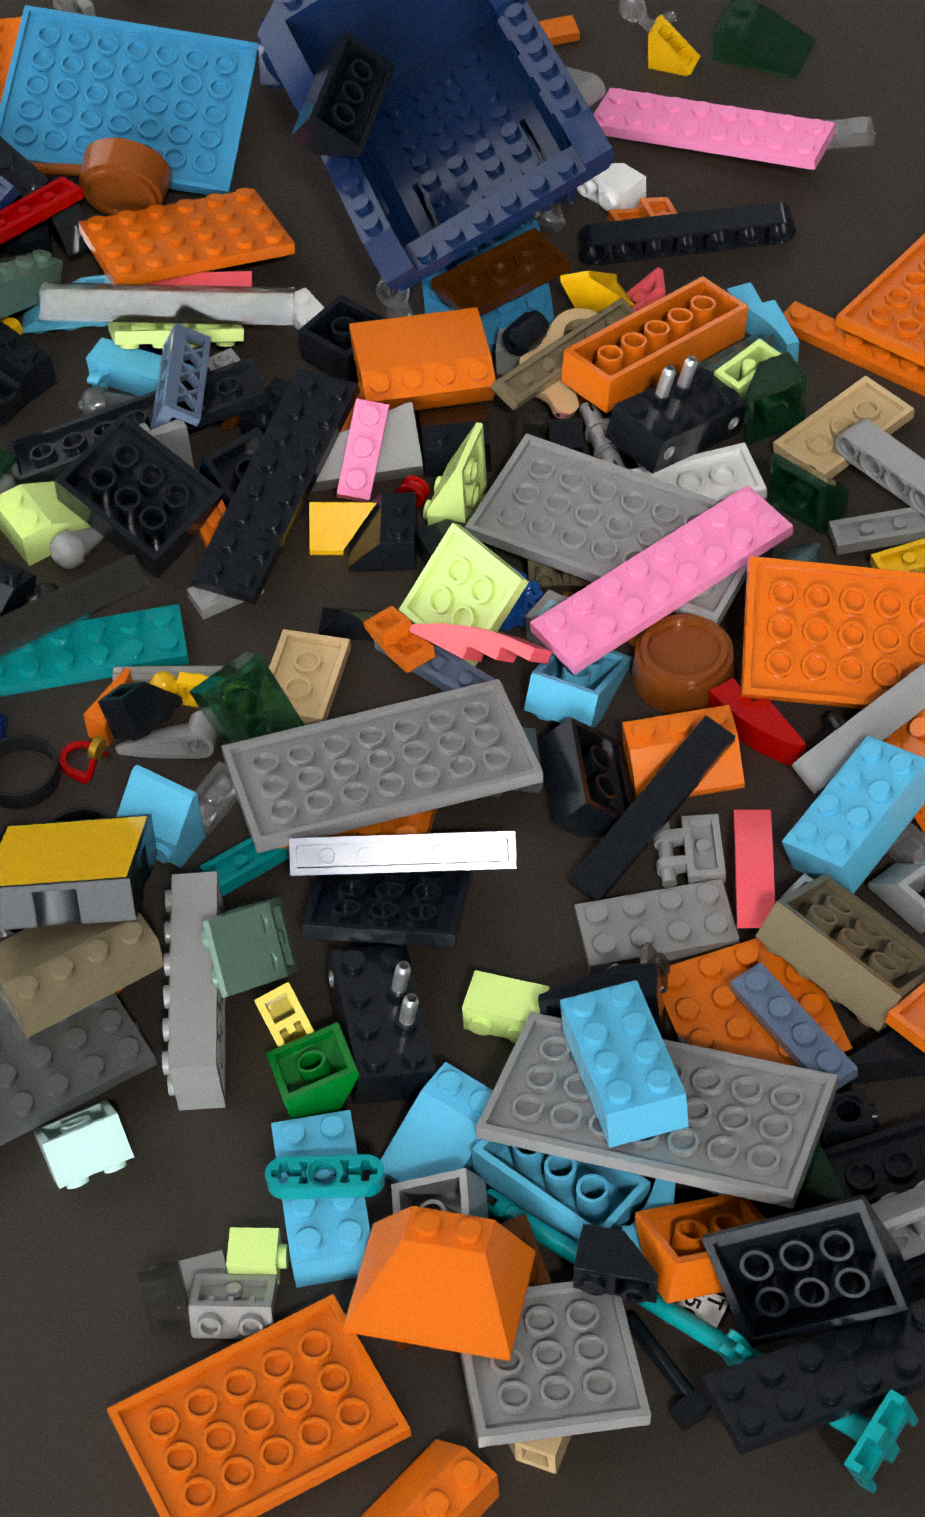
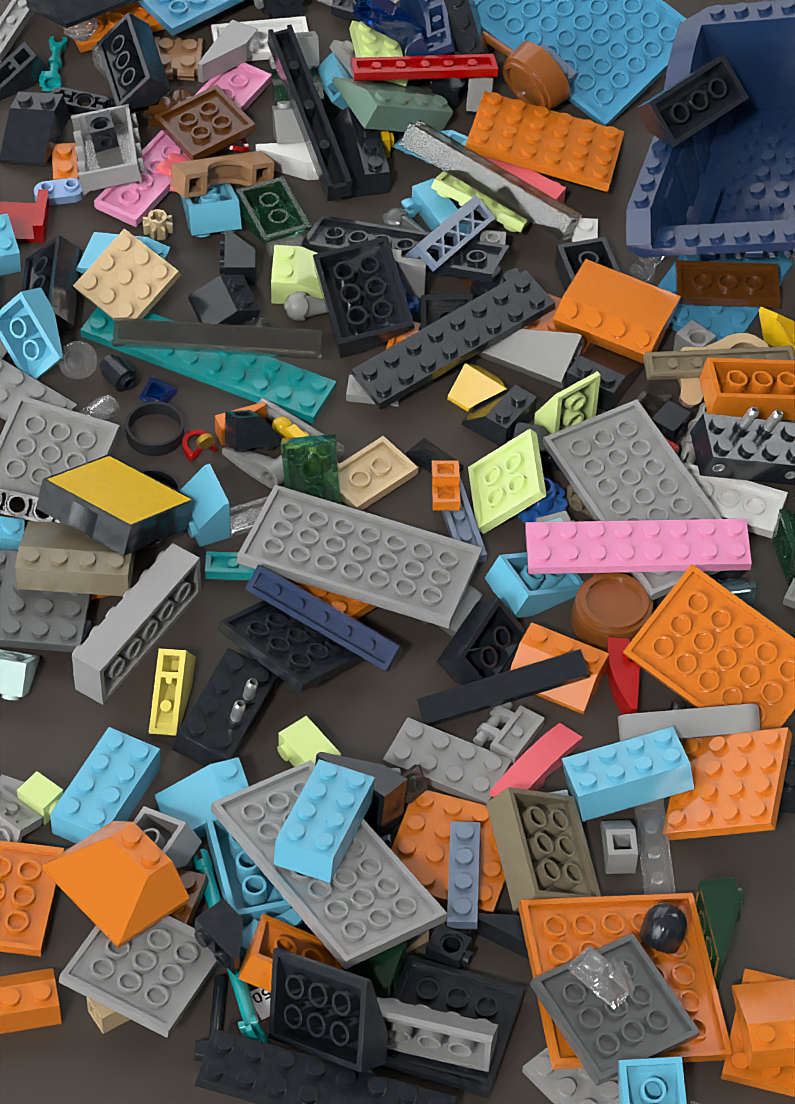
camera: 30 degrees right, 0 degrees up
(249, 947) = (180, 614): sand green slope -> none
(314, 1072) = (157, 714): green slope -> none
(337, 1189) = (113, 787): teal beam -> none
(362, 450) = (526, 349): bright pink plate -> none
(415, 484) = (543, 394): red bush -> none
(474, 642) = (489, 518): coral slope -> none
(525, 333) = (700, 332): black brick -> none

